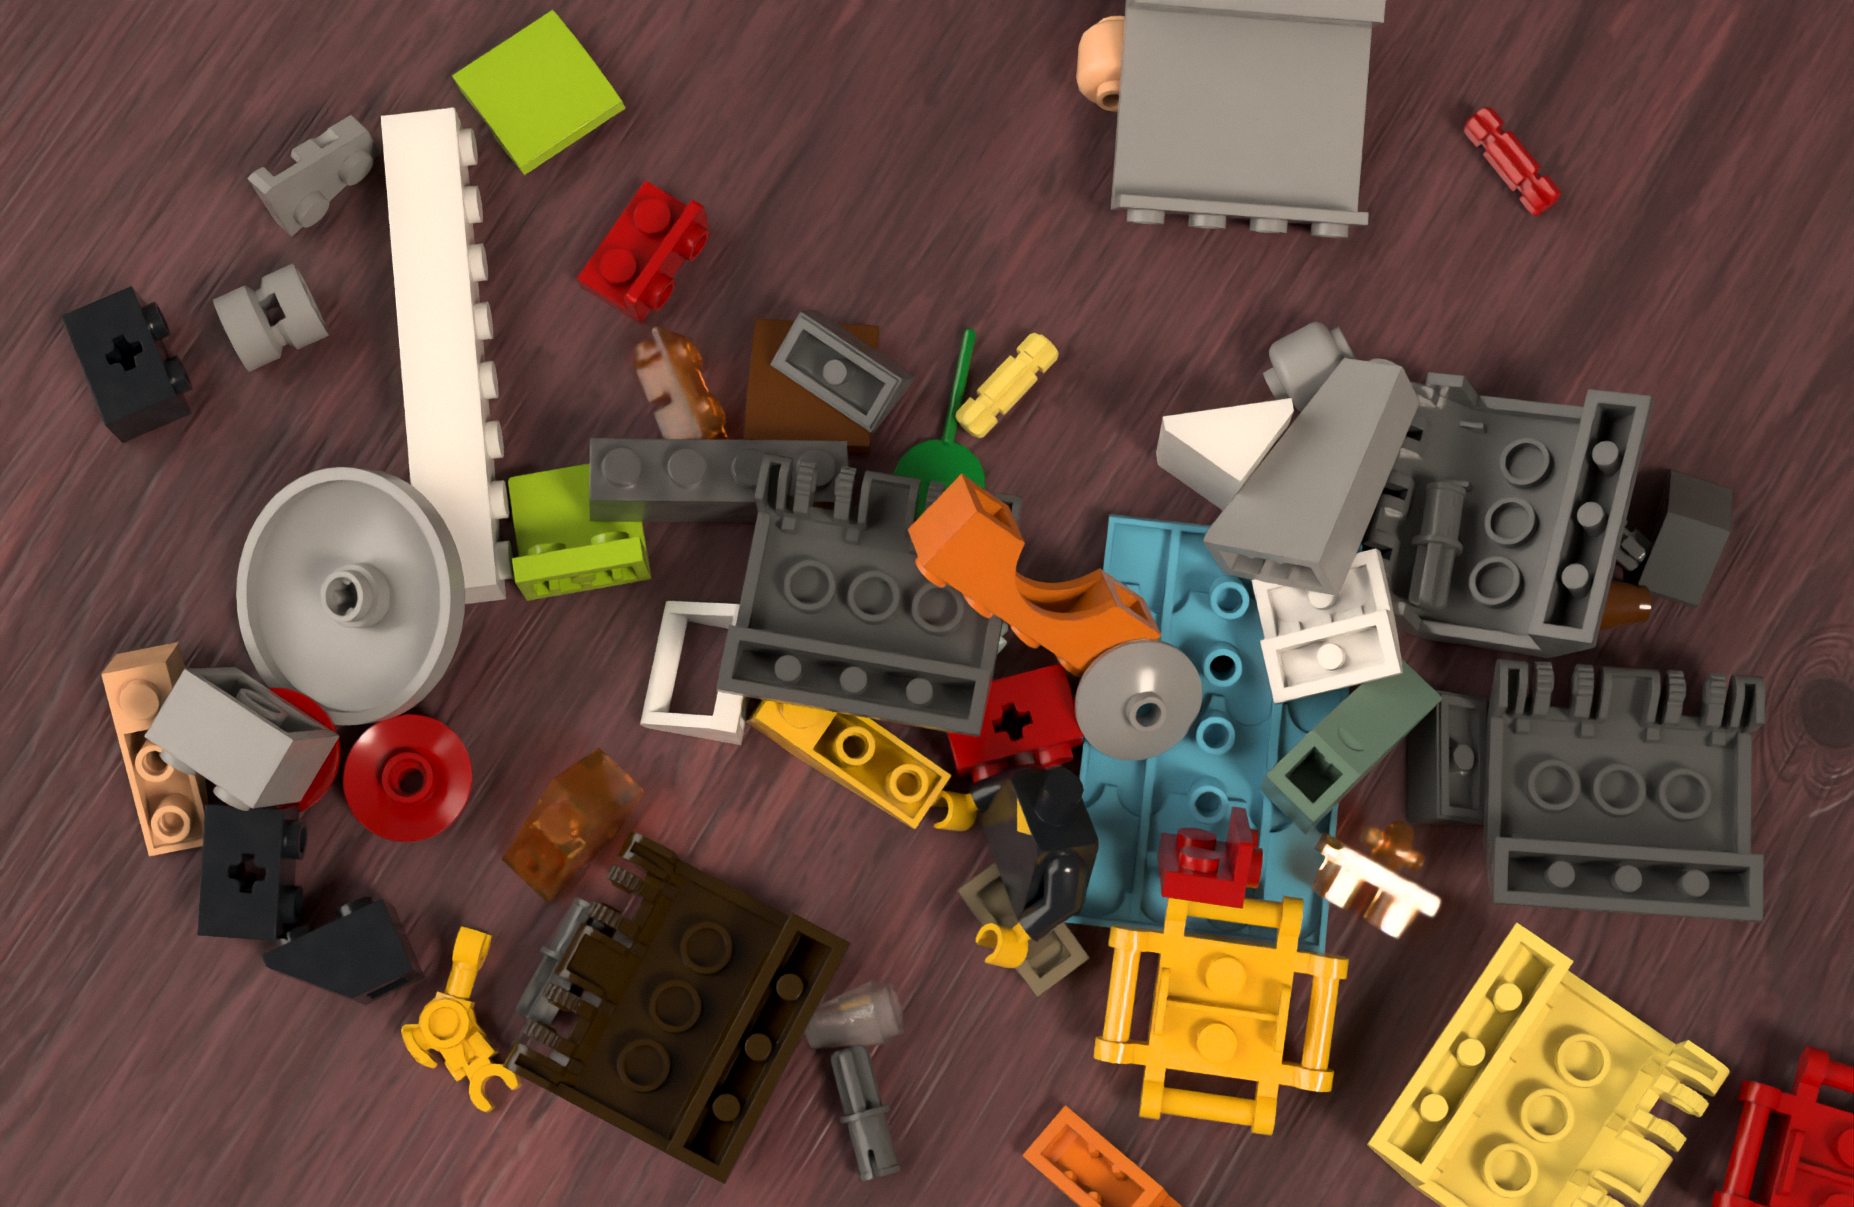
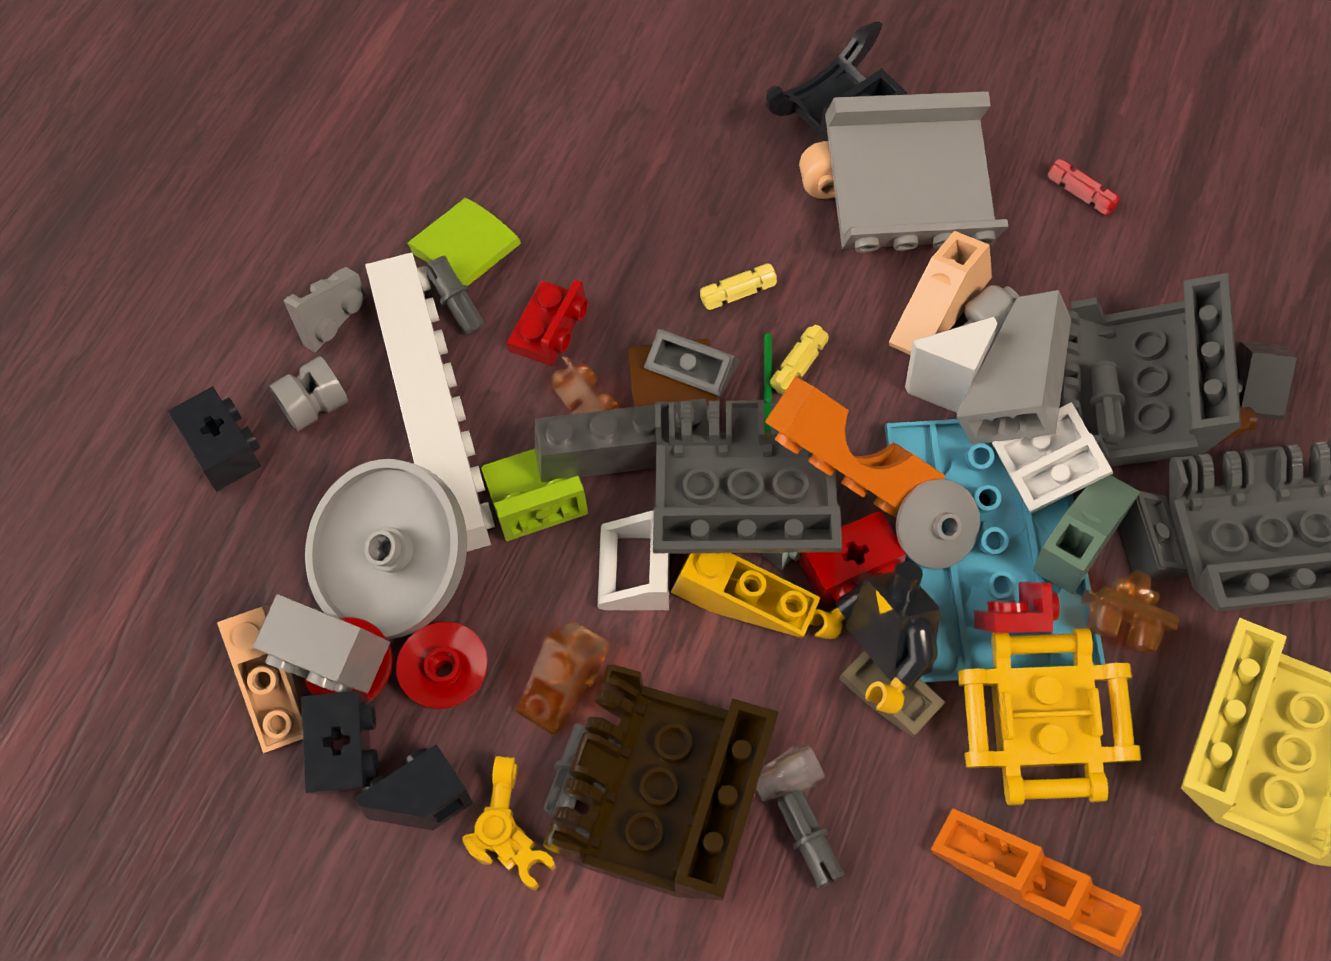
camera: 10 degrees left, 15 degrees down
(508, 184) = (454, 295): none -> dark grey axle
(942, 242) = (738, 286): none -> light yellow axle
(1240, 321) = (949, 282): none -> light nougat slope

